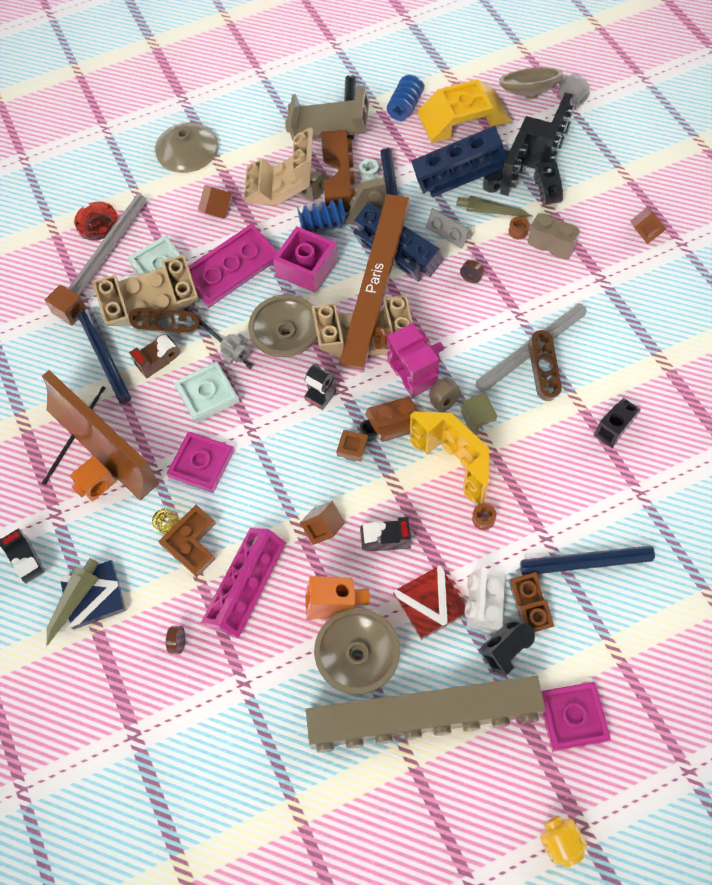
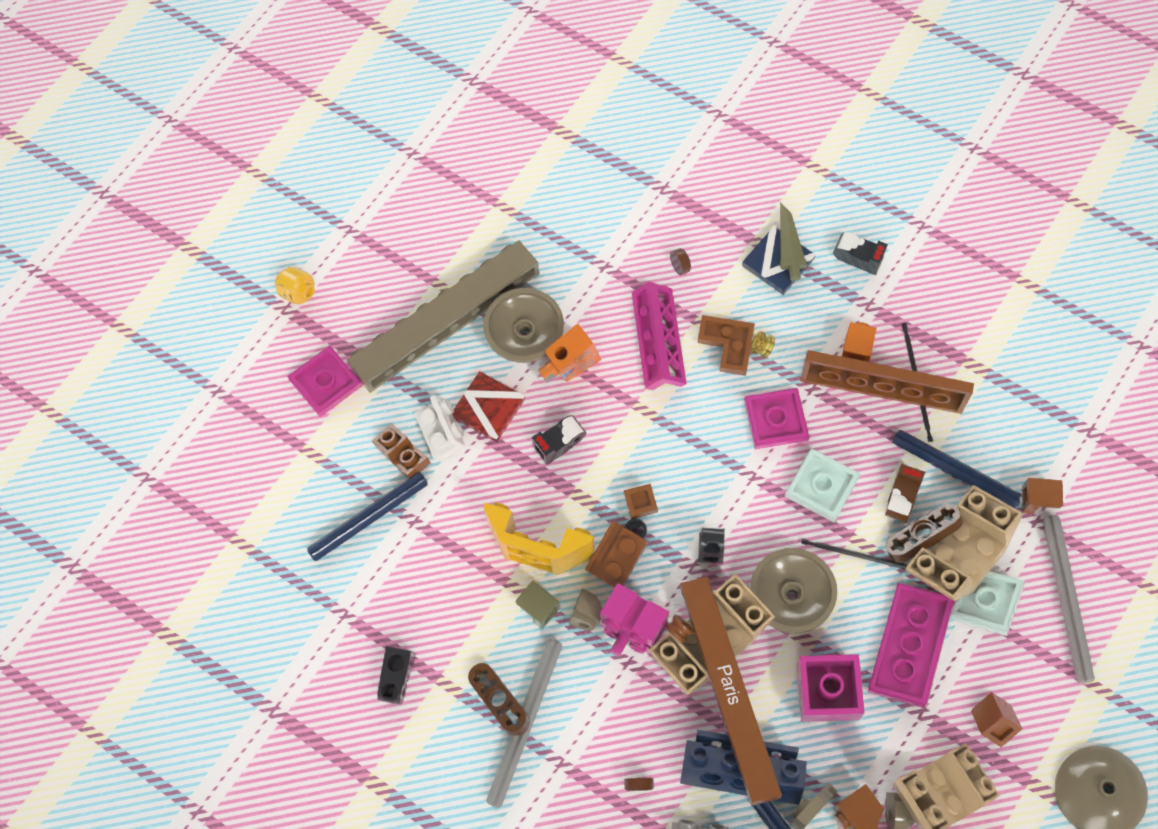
camera: 150 degrees right, 5 degrees up
(95, 220) = (1111, 623): clear red tile -> none
(234, 348) = (828, 542): light grey gear -> none
(322, 216) = (854, 760): blue piece -> none
(322, 522) = (623, 419): dark orange panel -> none
(481, 525) = (472, 506): dark orange bush -> none
(506, 645) = (403, 399): black leg -> none

